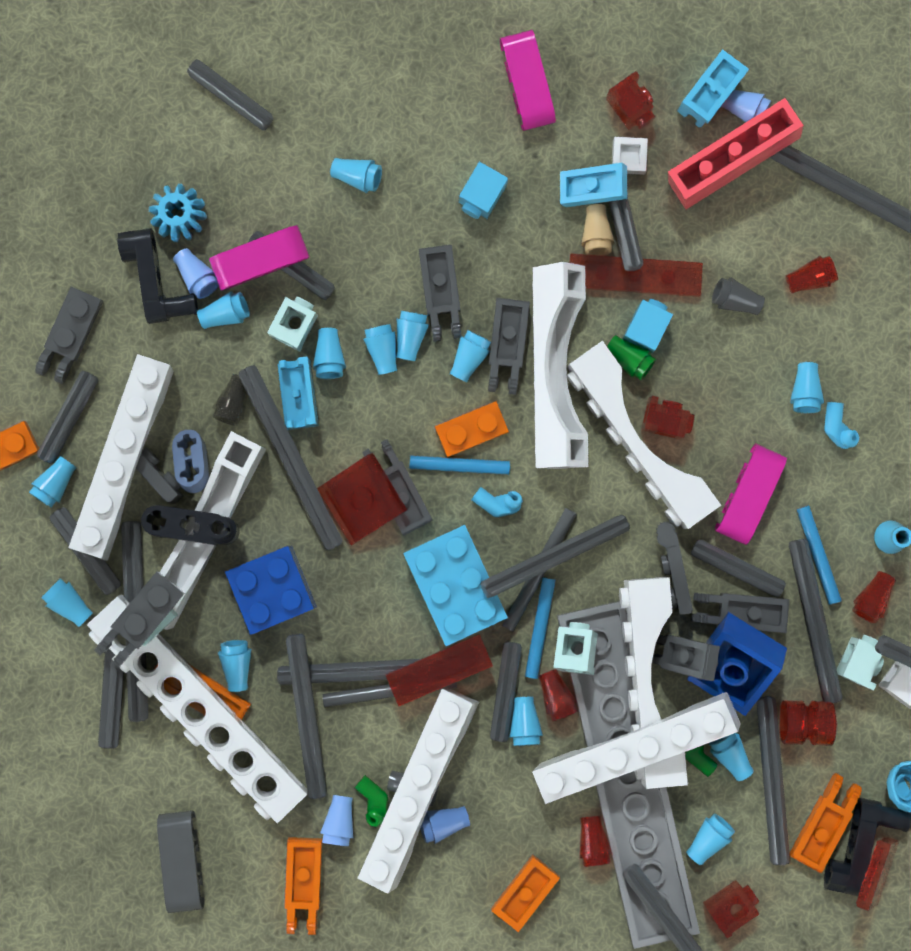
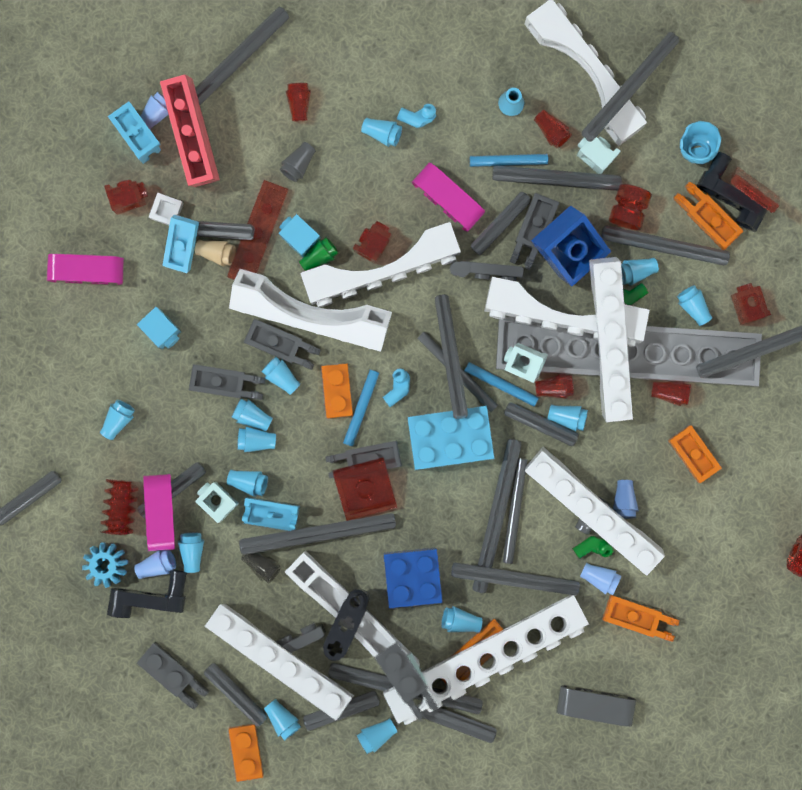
camera: 70 degrees left, 0 degrees up
(197, 460) = (297, 616): sand blue beam -> none
(251, 209) = (119, 507): none -> clear red piece
(439, 670) = (510, 469): clear red plate -> none
(687, 657) = (555, 281): dark grey hinge -> none

